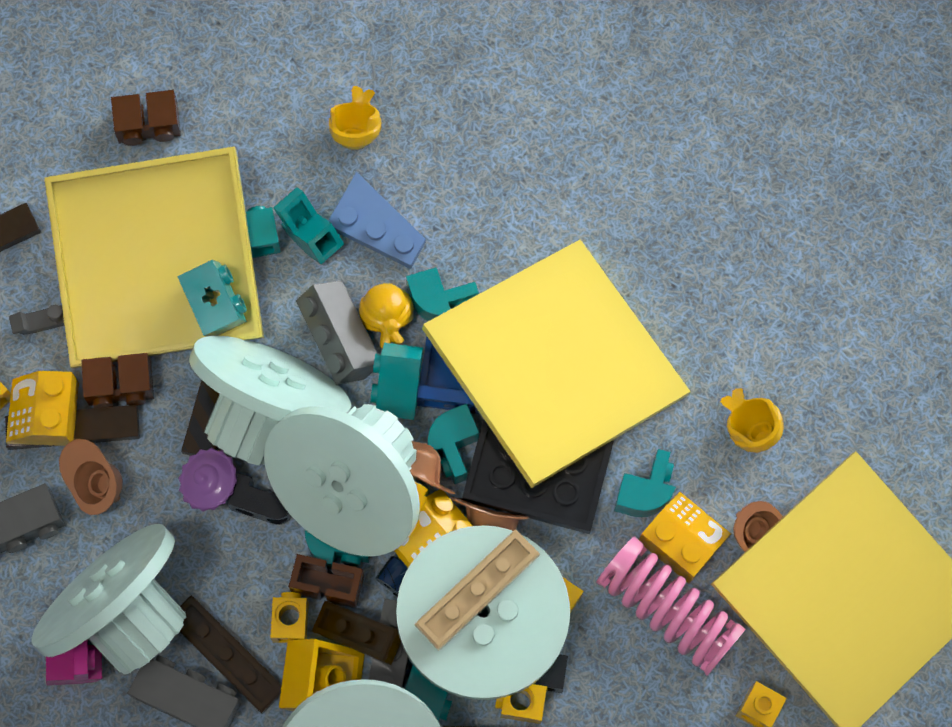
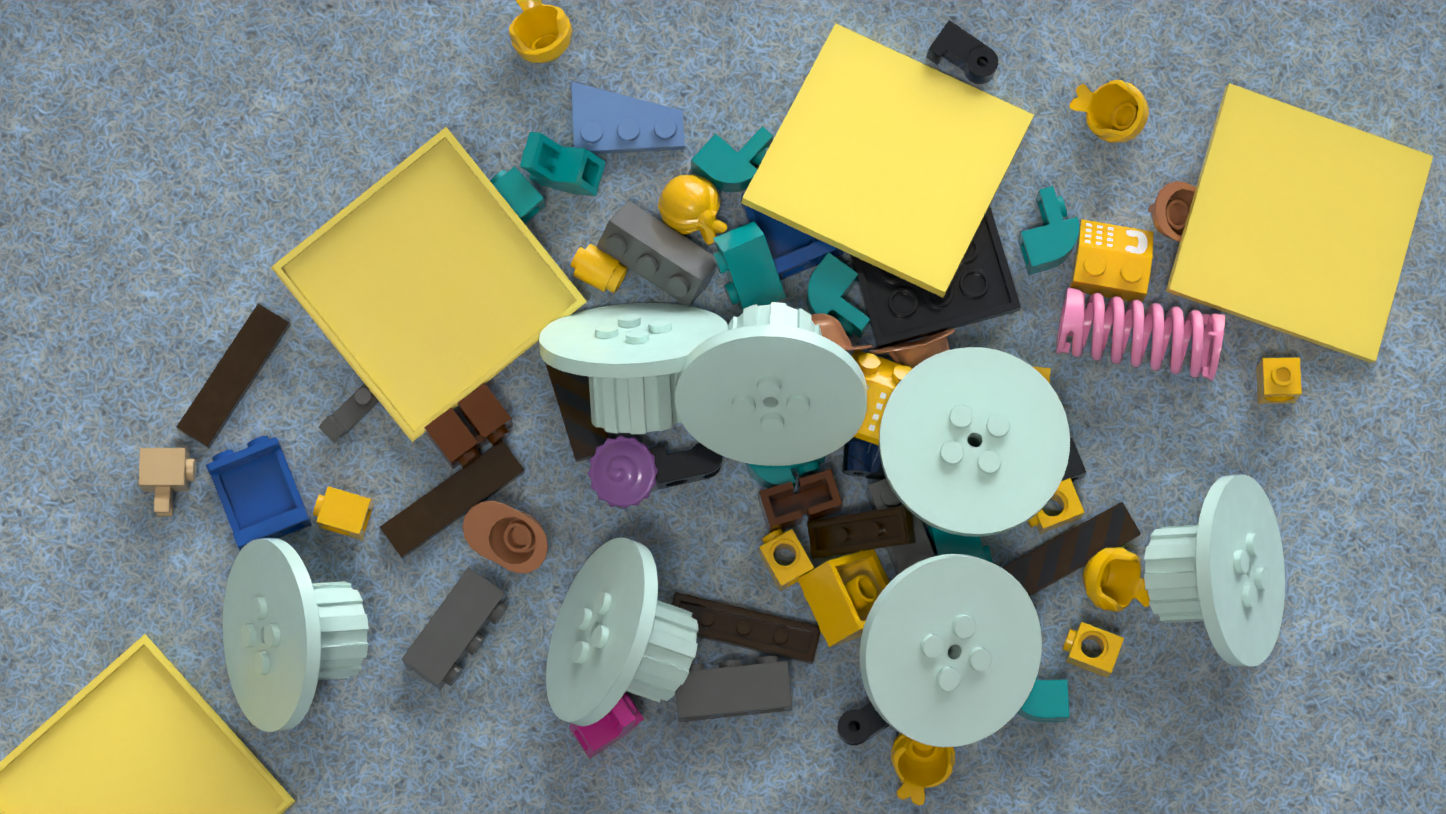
camera: 30 degrees left, 5 degrees up
(43, 408) = (415, 498): yellow slope -> none
(130, 119) = (309, 158): reddish brown piece -> none
(199, 287) = (498, 289): teal brick -> none
(288, 319) = (598, 269): none -> yellow brick
(477, 590) = (959, 423): tan tile -> none
(665, 315) = (965, 52): none -> black leg

